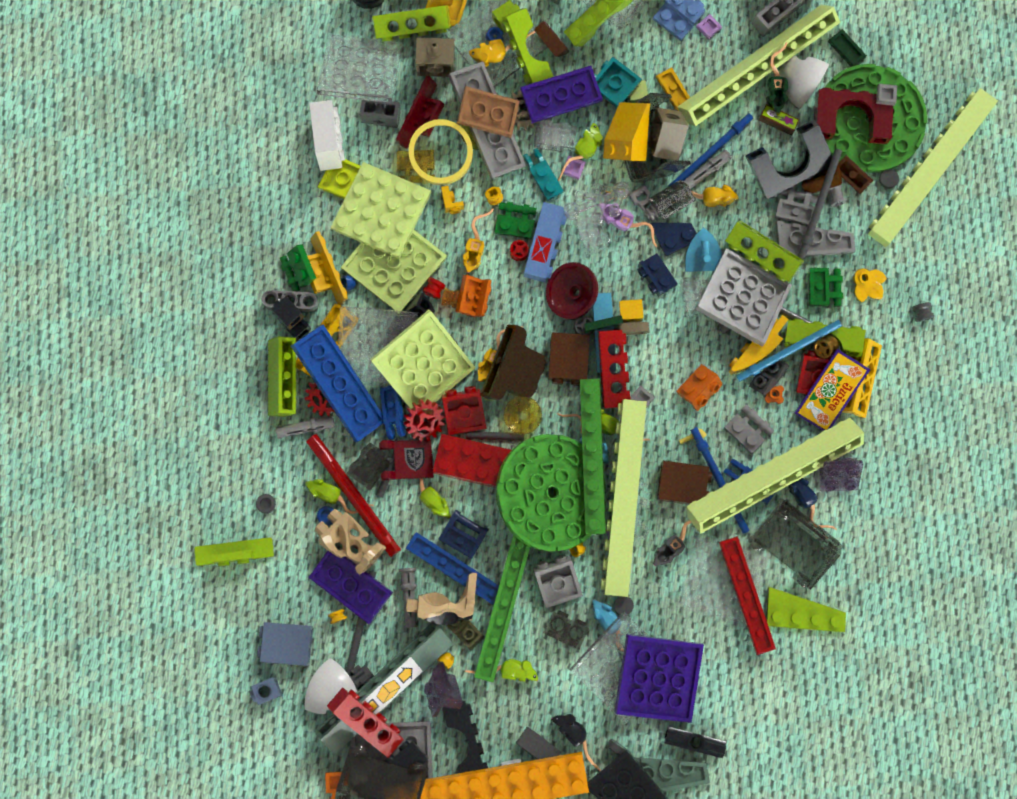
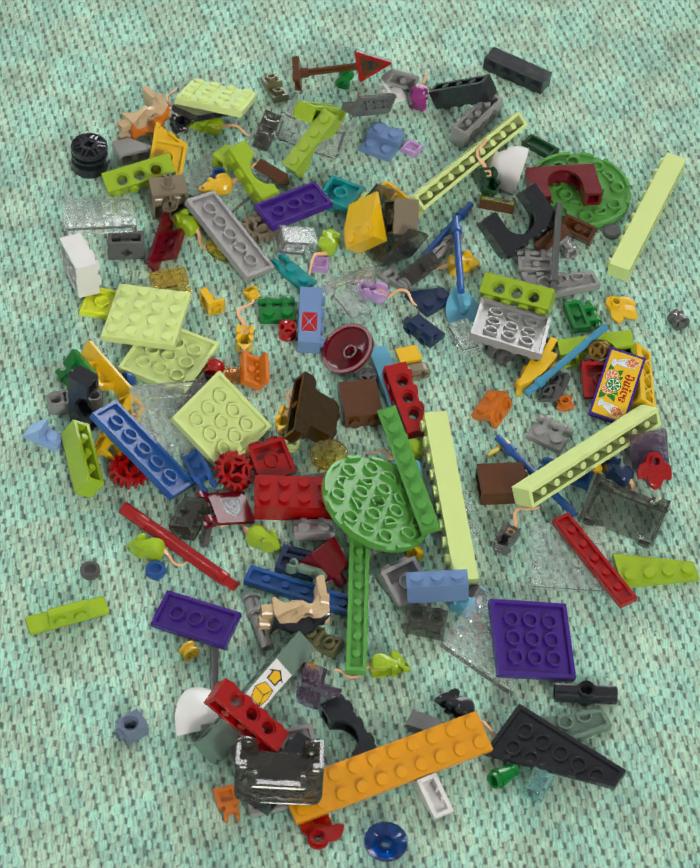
camera: 15 degrees left, 30 degrees down
(253, 335) = (42, 435): none -> light blue slope
(285, 643) = (141, 680): sand blue panel -> none
(312, 425) = (136, 492): light grey pin -> none
(340, 533) = (172, 576): tan hips -> none
(445, 180) = (192, 286): light yellow piece -> none
(446, 90) = (188, 224): none -> lime animal
(482, 507) = (313, 529): none -> light grey plate
(485, 546) = (325, 560): none -> dark red torso
(488, 112) = (229, 225): medium nougat tile -> none
(583, 604) = (437, 586): none -> medium blue brick
(603, 324) = (376, 367): dark green tile -> none
(615, 747) = (505, 711): dark grey tile -> none
(723, 157) = (456, 231): none -> blue bar
(839, 498) = (653, 472): none -> red plate
(886, 94) = (587, 162): light grey tile -> none

